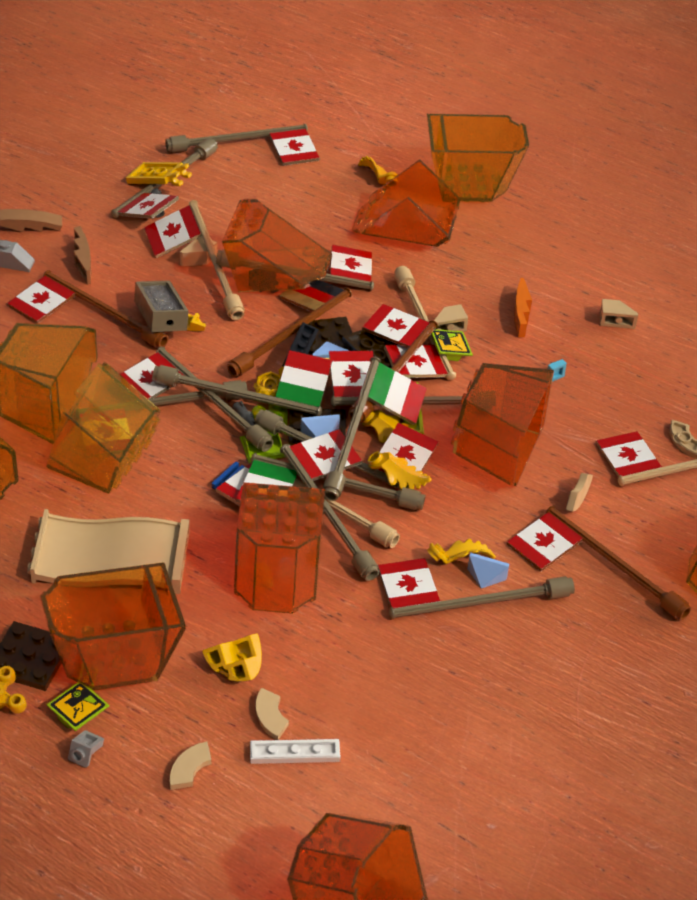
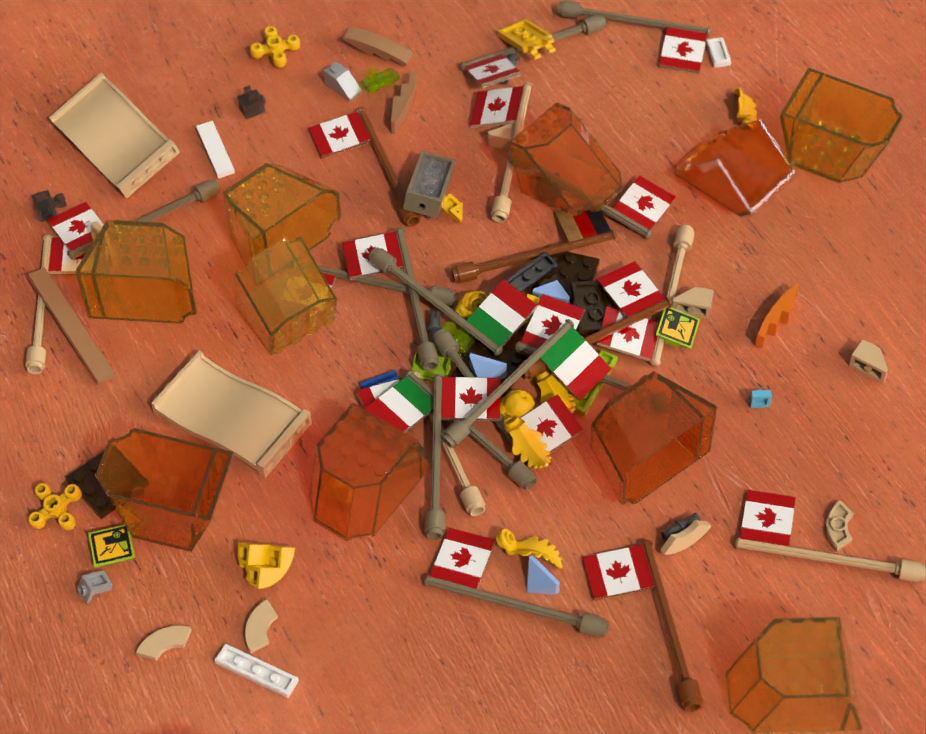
camera: 35 degrees right, 10 degrees up
(47, 245) = (378, 80): none -> clear neon green plate
(324, 140) = (718, 52): none -> white tile
(365, 445) = (516, 403): none -> yellow hair
(567, 486) = (679, 526): none -> dark grey pin

